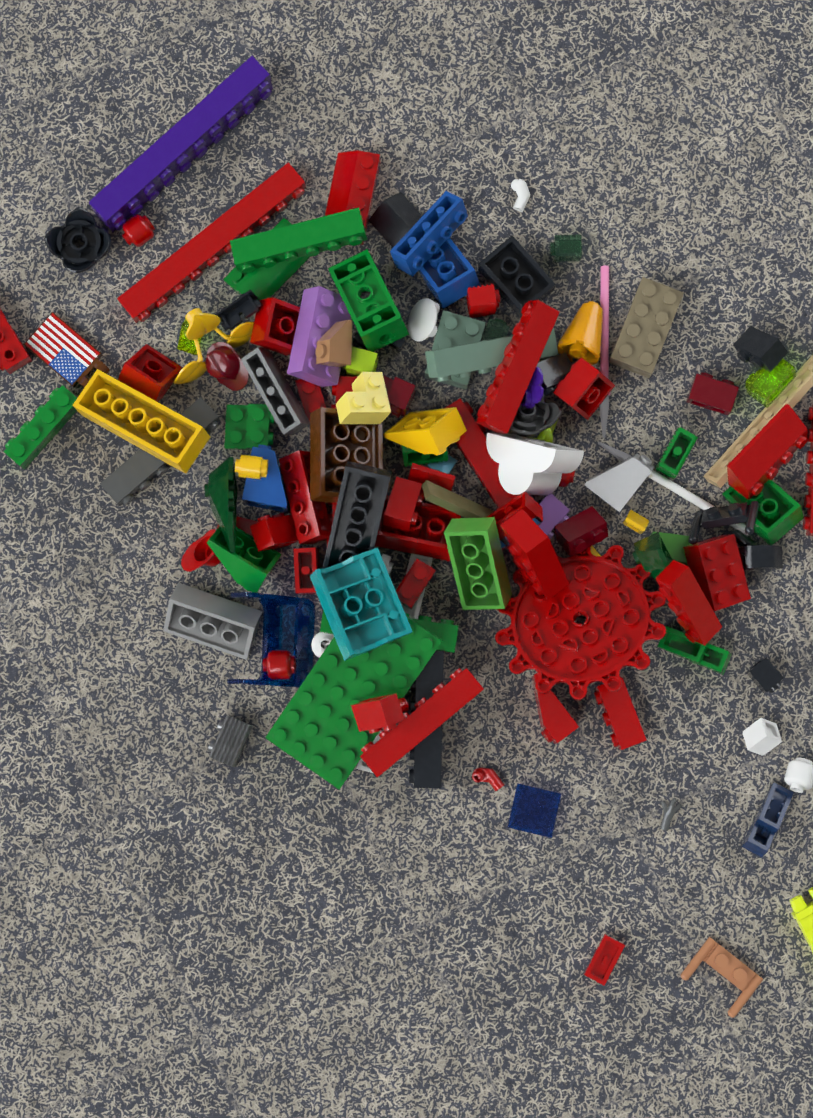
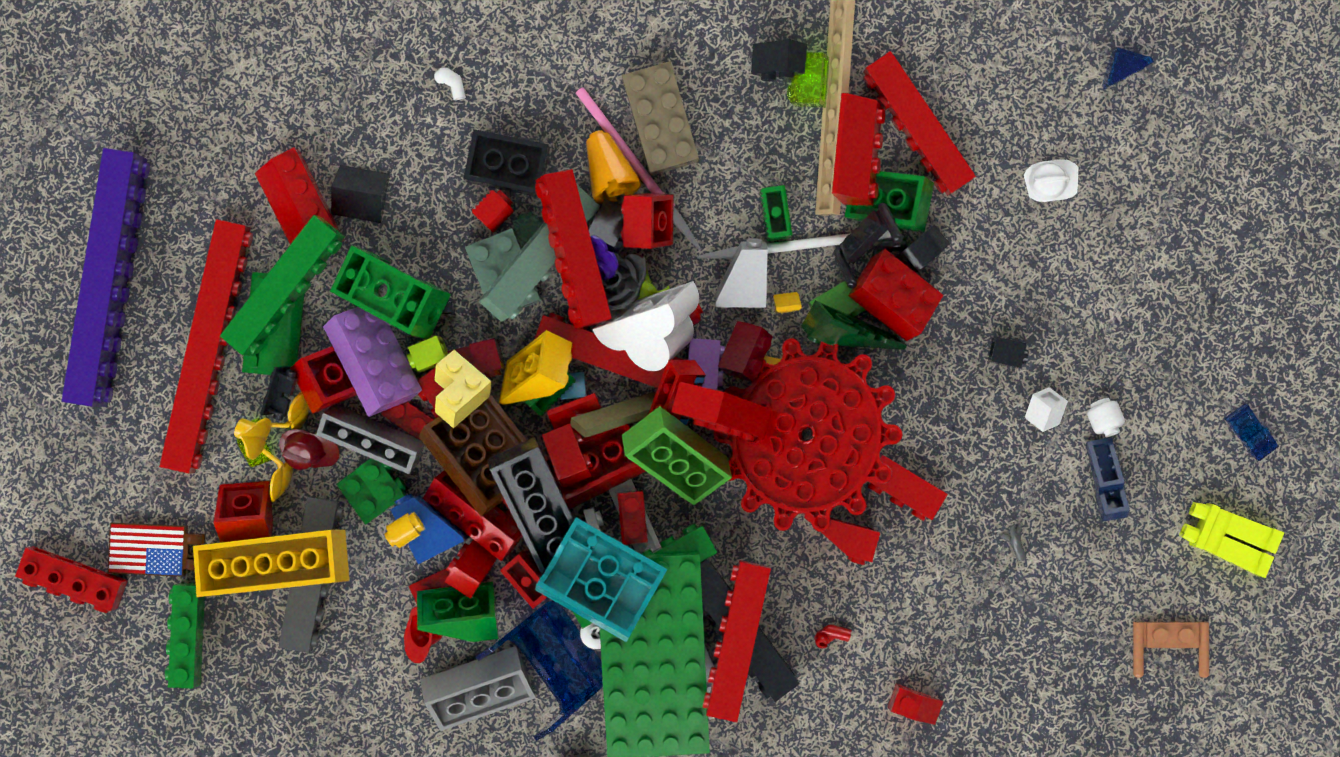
camera: 45 degrees left, 5 degrees up
(78, 226) = (67, 451): black brick -> none
(138, 230) = (128, 388): red head -> none
(223, 499) = (398, 570): dark green wedge -> none
(279, 664) = (569, 683): red head -> none
(335, 345) = (392, 358): medium nougat slope -> none
(379, 713) = (694, 663): red brick -> none
(423, 319) = (453, 268): white dish -> none
(429, 233) = (396, 185): blue brick -> none
(448, 274) = (435, 206): blue slope -> none
(509, 873) = (914, 705): none -> red slope
(534, 810) = (895, 632): clear blue plate -> none
(566, 248) = (531, 100): clear green brick -> none
(604, 959) = (1057, 715): red plate -> none
(688, 602) = (892, 346): red brick -> none
(705, 656) = (929, 378): green slope -> none
(712, 393) = (766, 133): dark red brick -> none

